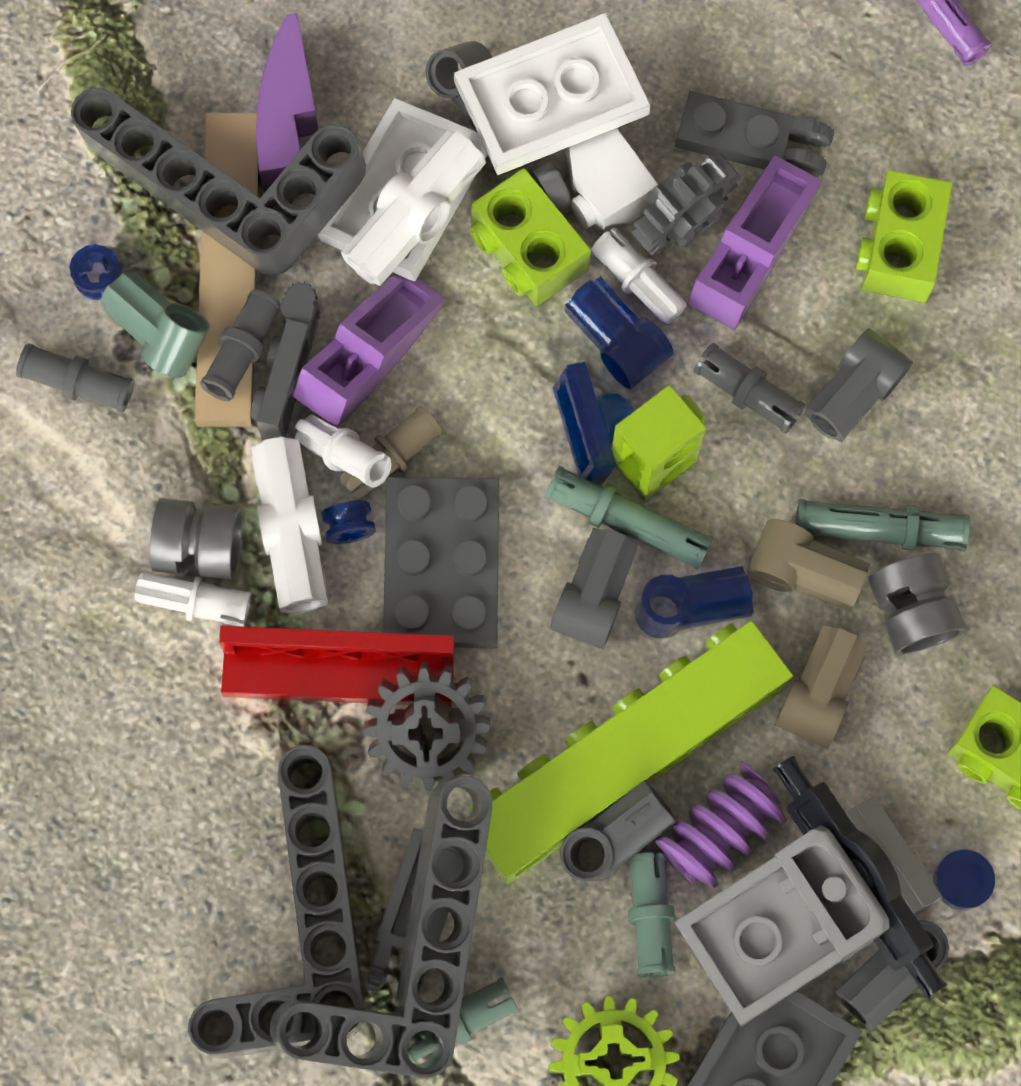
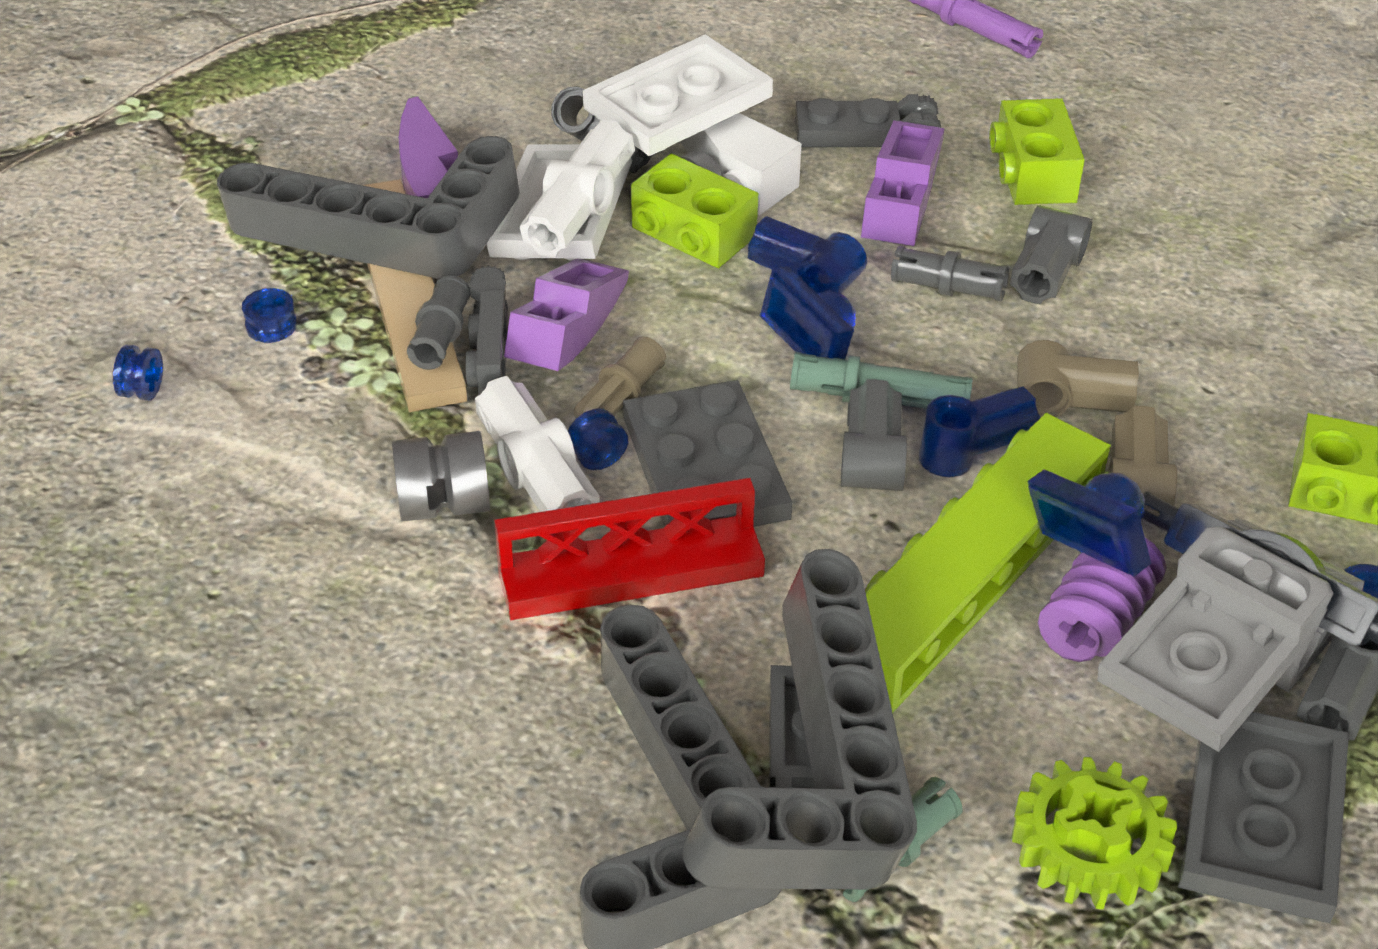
camera: 15 degrees left, 30 degrees down
(75, 377) = (269, 389): dark grey pin -> none
(165, 329) = (353, 331): sand green piece -> none
(194, 598) = (443, 532): white axle -> none
(343, 450) = (576, 378): white axle -> none
(404, 726) = (723, 581): dark grey gear -> none
(621, 831) = (996, 617): dark grey piece -> none
(638, 275) = (805, 216): white axle -> none
(651, 915) = (1066, 692): sand green pin -> none
(658, 441) = (888, 301): lime brick -> none
(686, 204) = (832, 148): dark grey gear -> none
(740, 777) = (1094, 518): none -> clear blue tile
(894, 526) = (1149, 339): sand green pin -> none
(917, 603) = (1196, 381): flat silver wheel -> none

